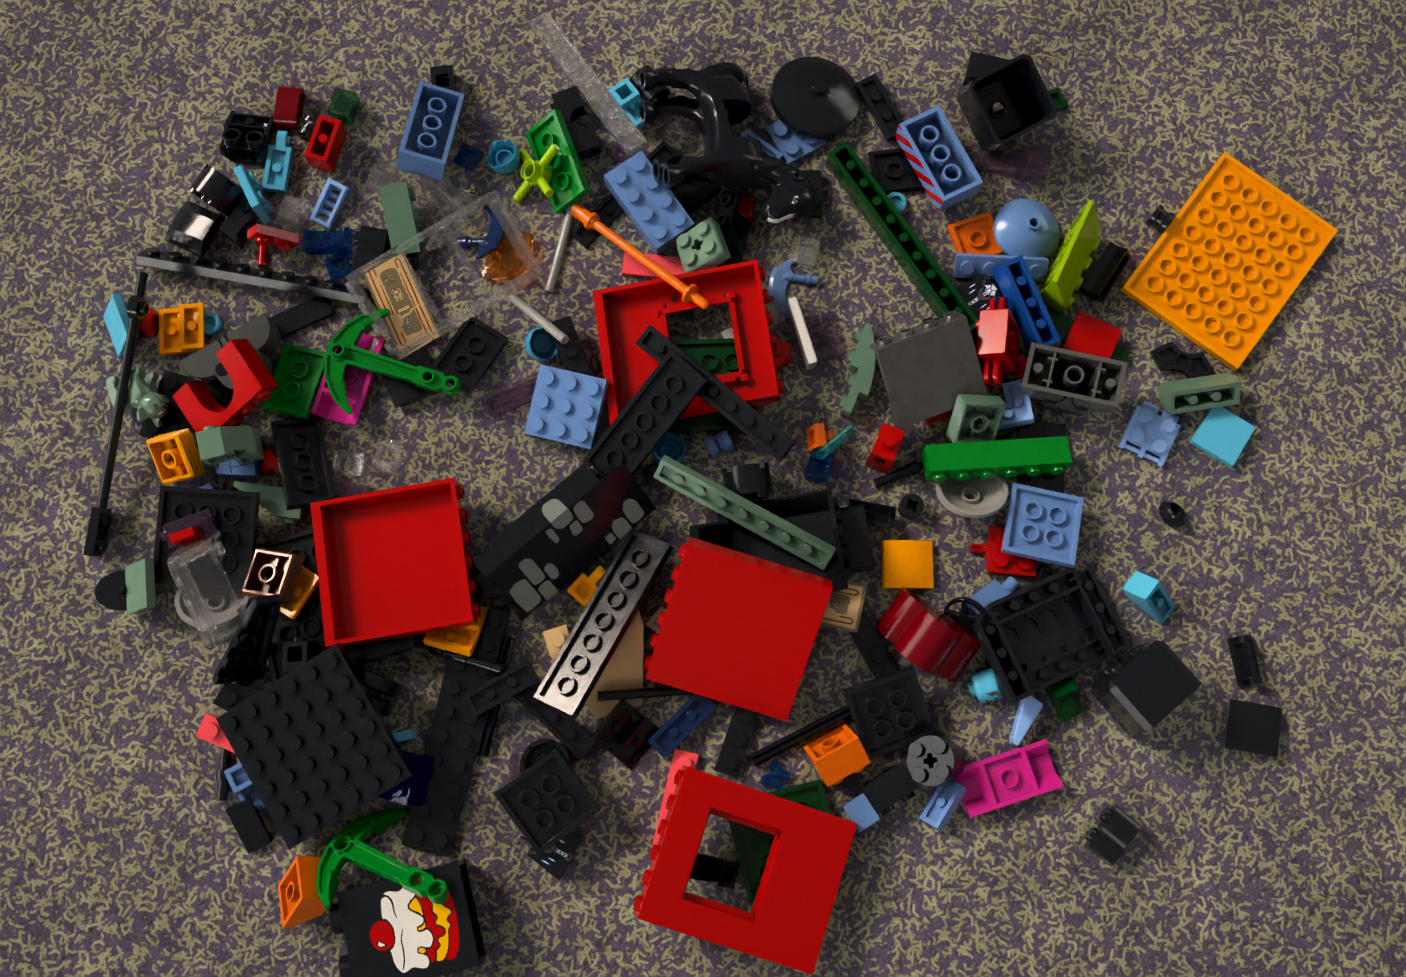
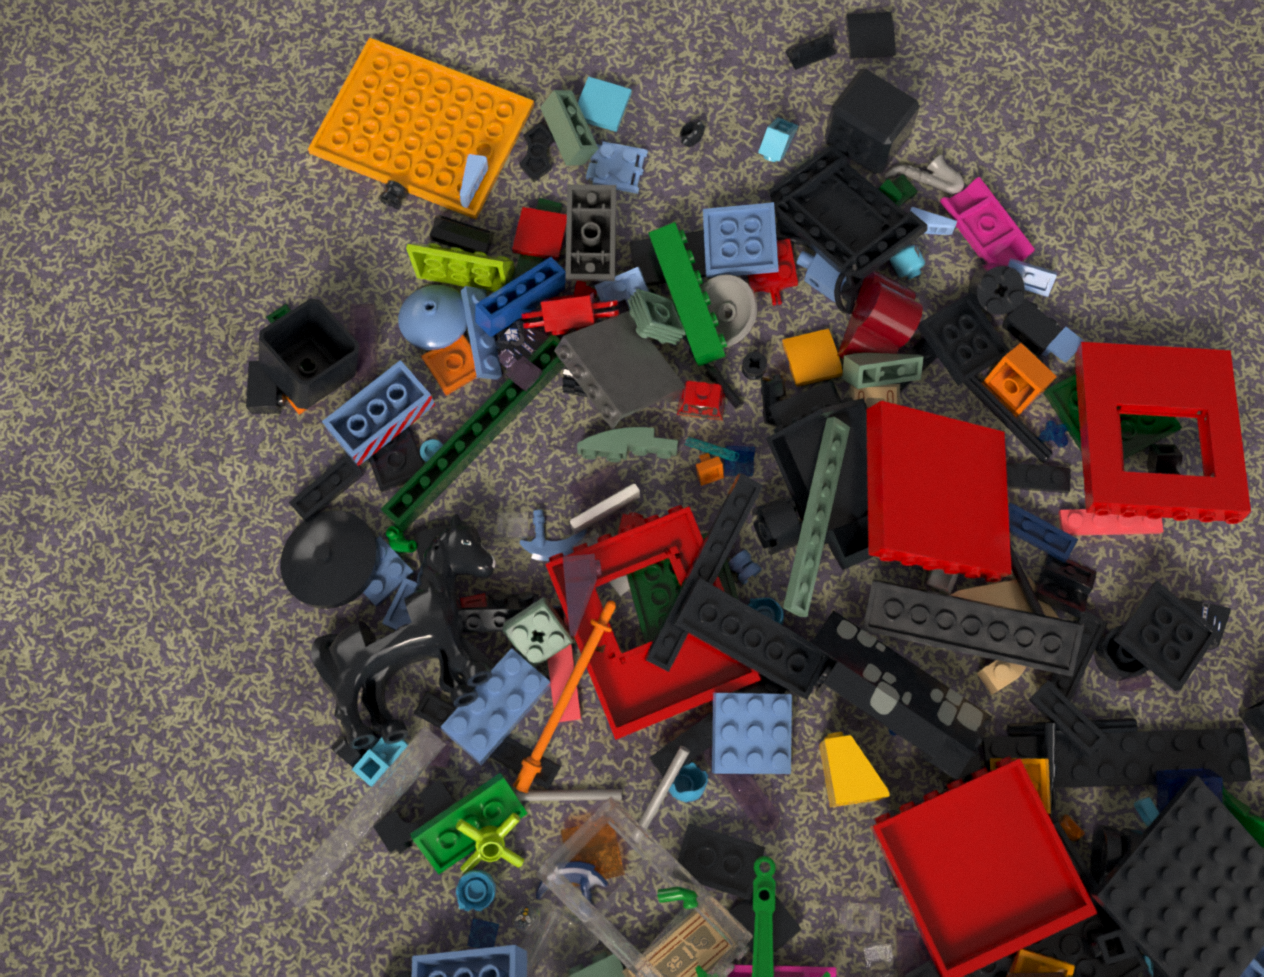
camera: 100 degrees left, 5 degrees down
(408, 662) = (1071, 828): none -> orange tile
(449, 306) = (678, 893): none -> green arm
(508, 479) = (848, 772): none -> yellow slope
(585, 586) = (932, 662): light orange plate -> none
(732, 281) = (580, 579): none -> clear purple slope
(816, 157) = (398, 541): none -> green arm
(876, 617) = (880, 369): none -> sand green slope
(949, 286) = (521, 372): none -> clear purple plate
(1071, 752) = (942, 178): none -> light grey piece
(1112, 834) = (1006, 130): black brick -> none
(1161, 289) = (473, 175): none -> light blue slope

